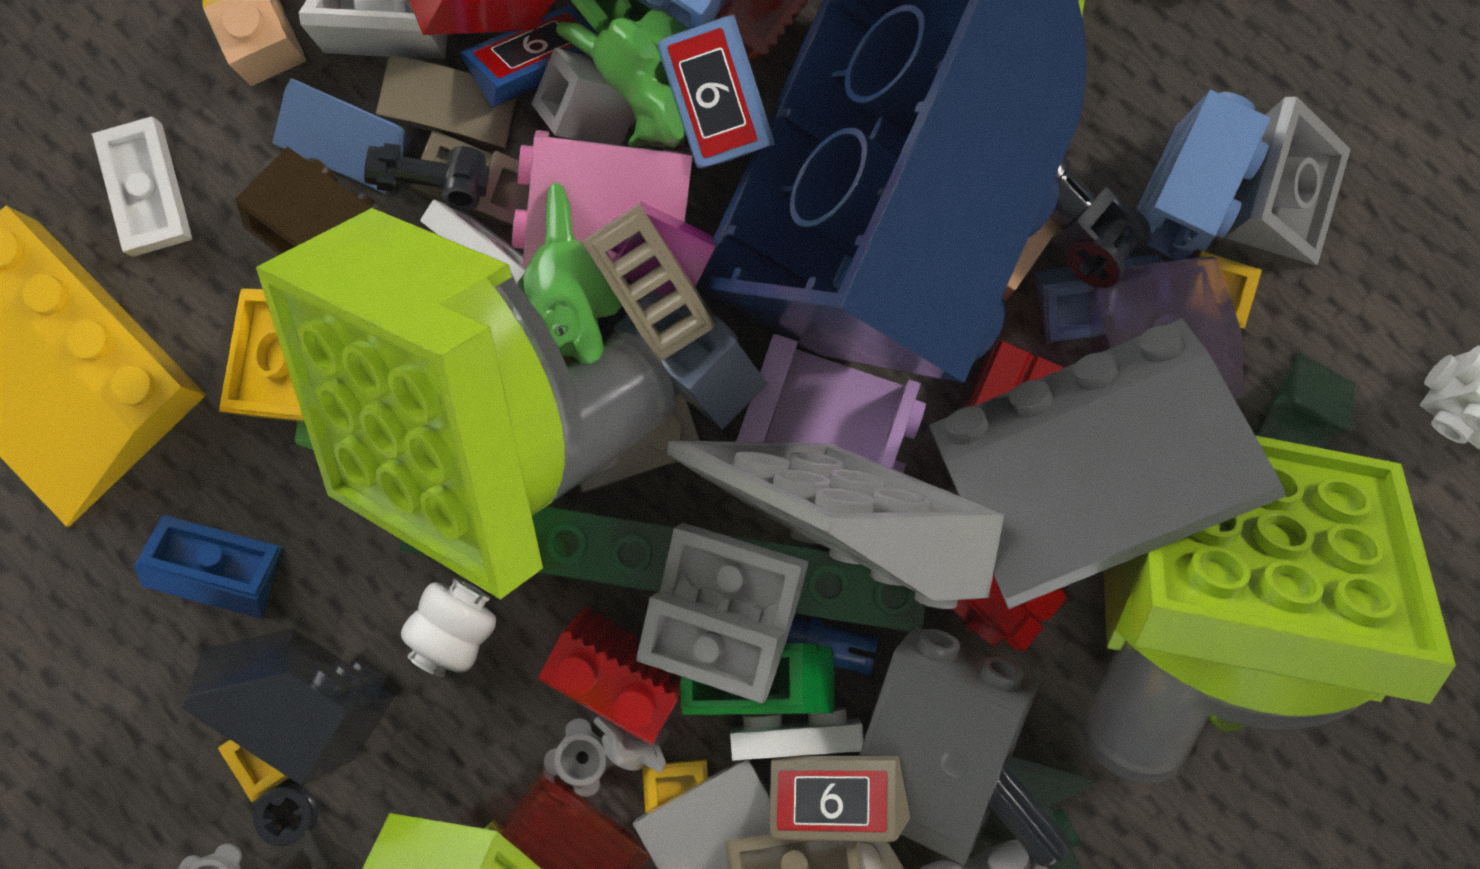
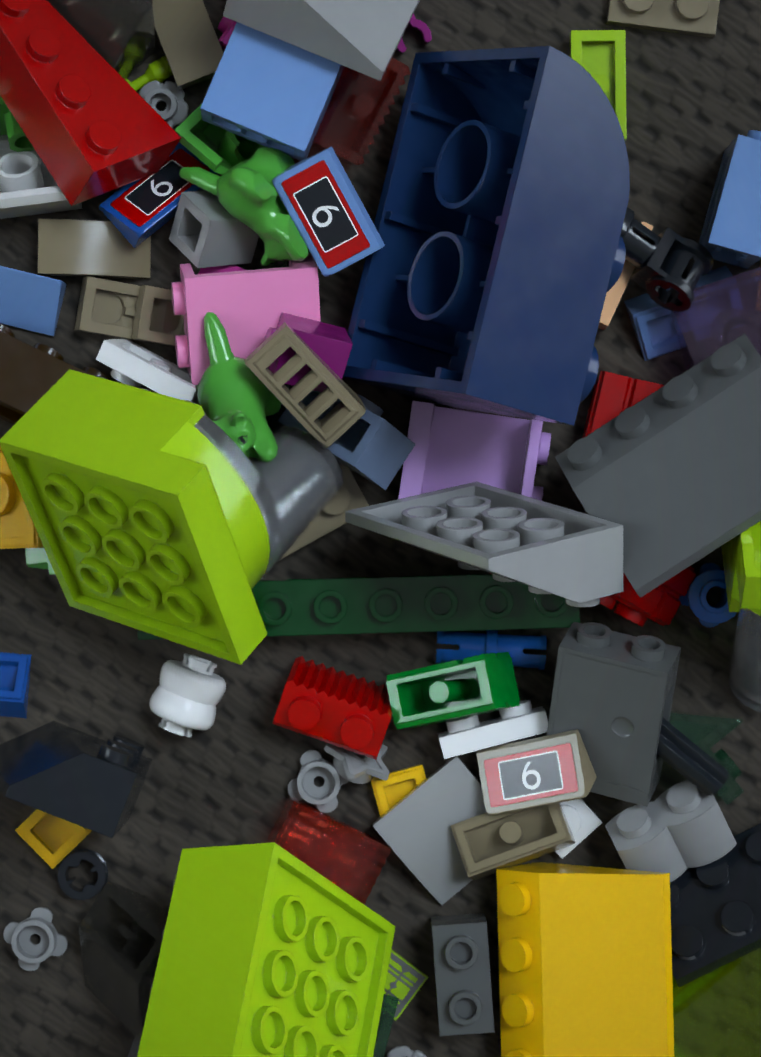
camera: 15 degrees left, 5 degrees up
(461, 178) = (122, 315): black bar -> none
(722, 612) = (414, 640): light grey slope -> none
(1063, 623) = (709, 616): none -> blue brick

